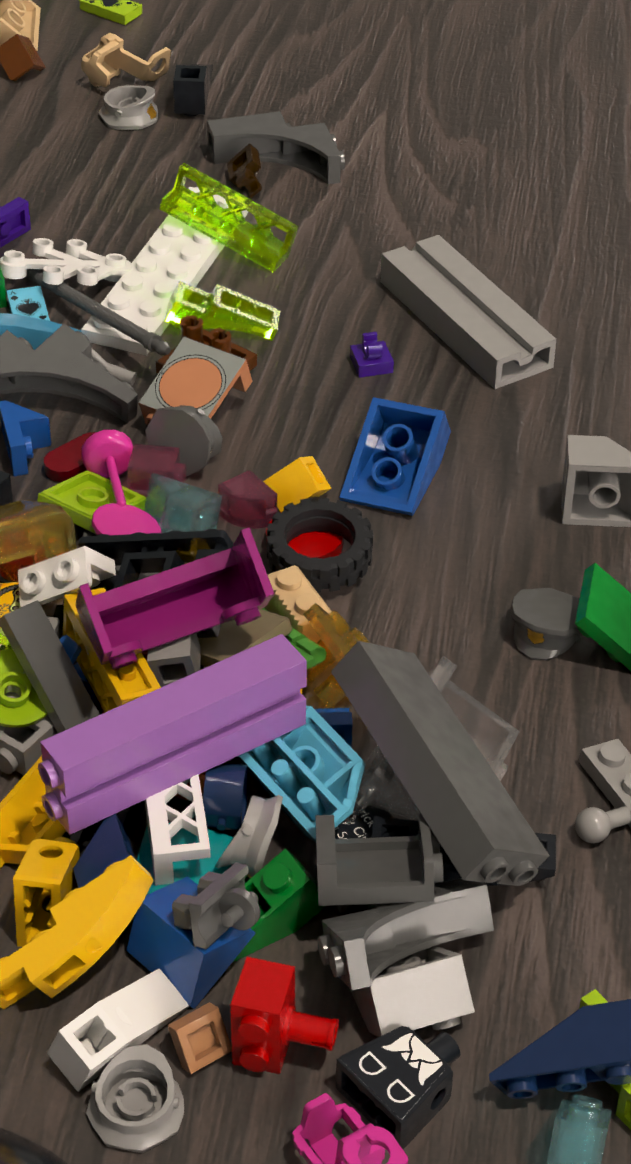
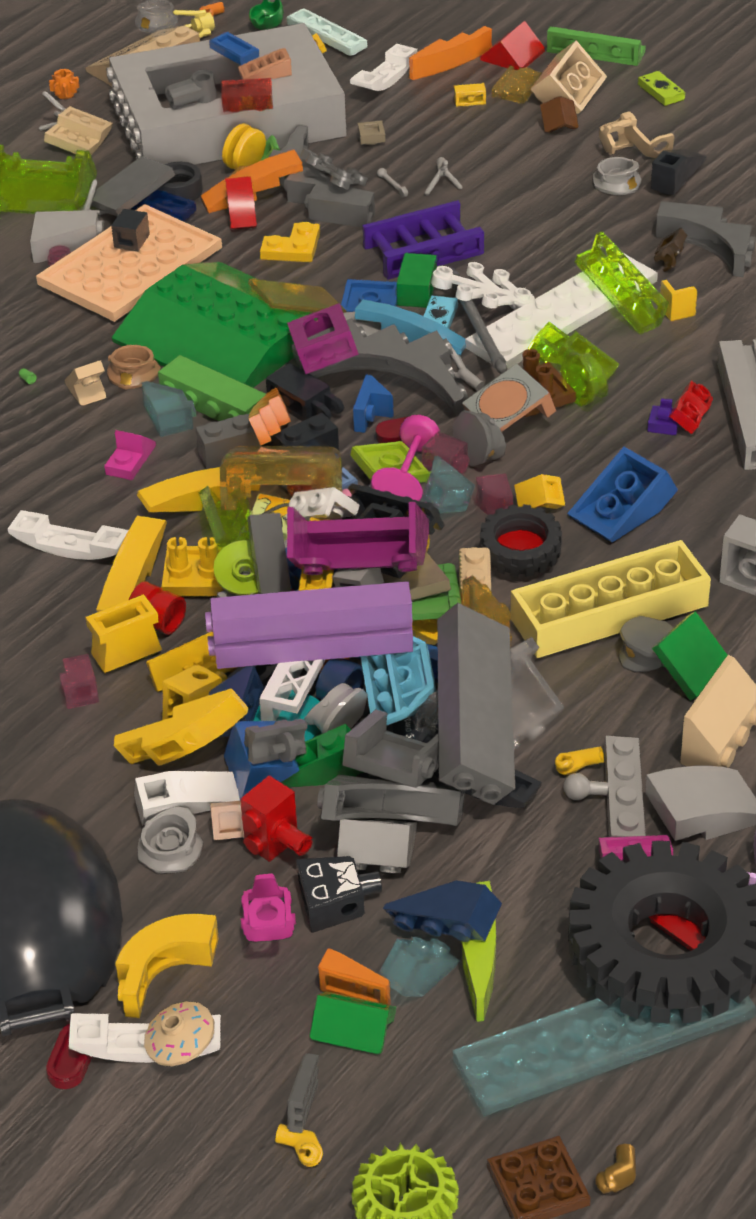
camera: 30 degrees right, 0 degrees up
(261, 332) = (584, 376): none -> clear neon green hat
(306, 218) = (681, 302): none -> yellow panel
(396, 333) = (691, 406): none -> red slope
(472, 578) = (607, 595): none -> light yellow brick
(565, 792) = (573, 761): none -> yellow arm

